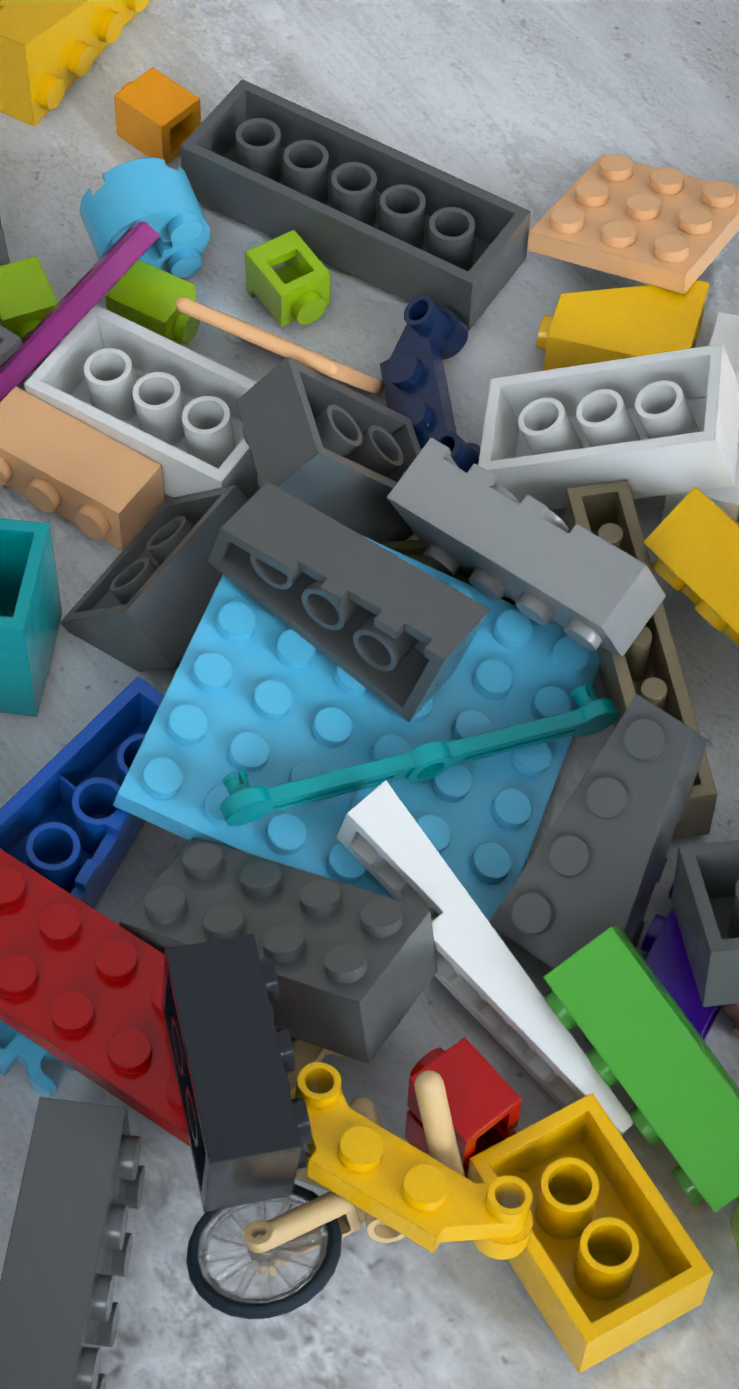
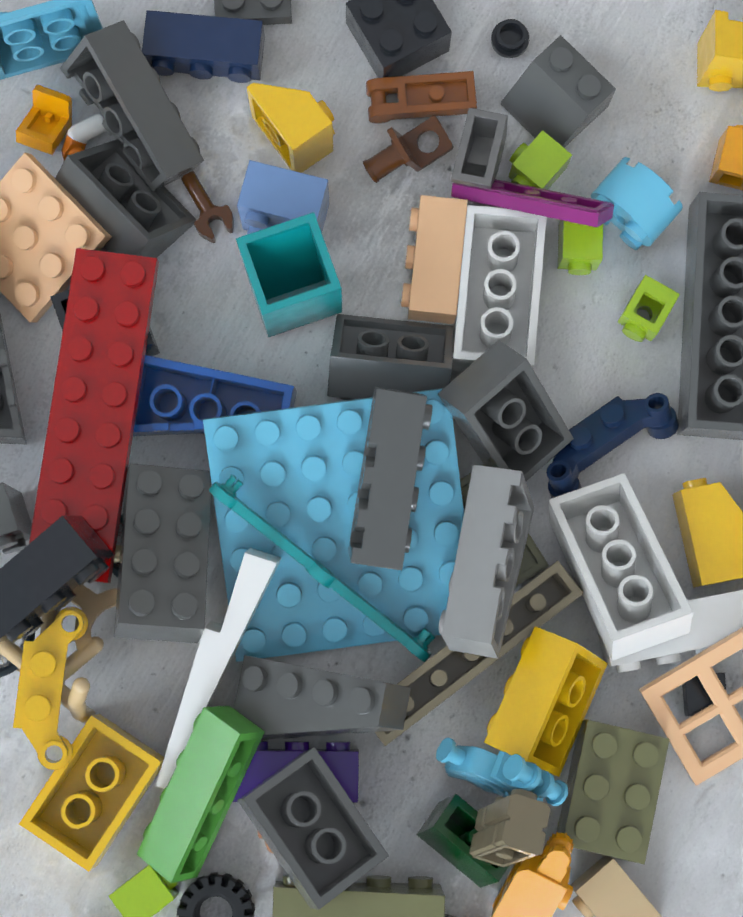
camera: 60 degrees right, 25 degrees up
(280, 345) = (577, 296): light nougat window -> none
(478, 1098) = (121, 695): red piece -> none

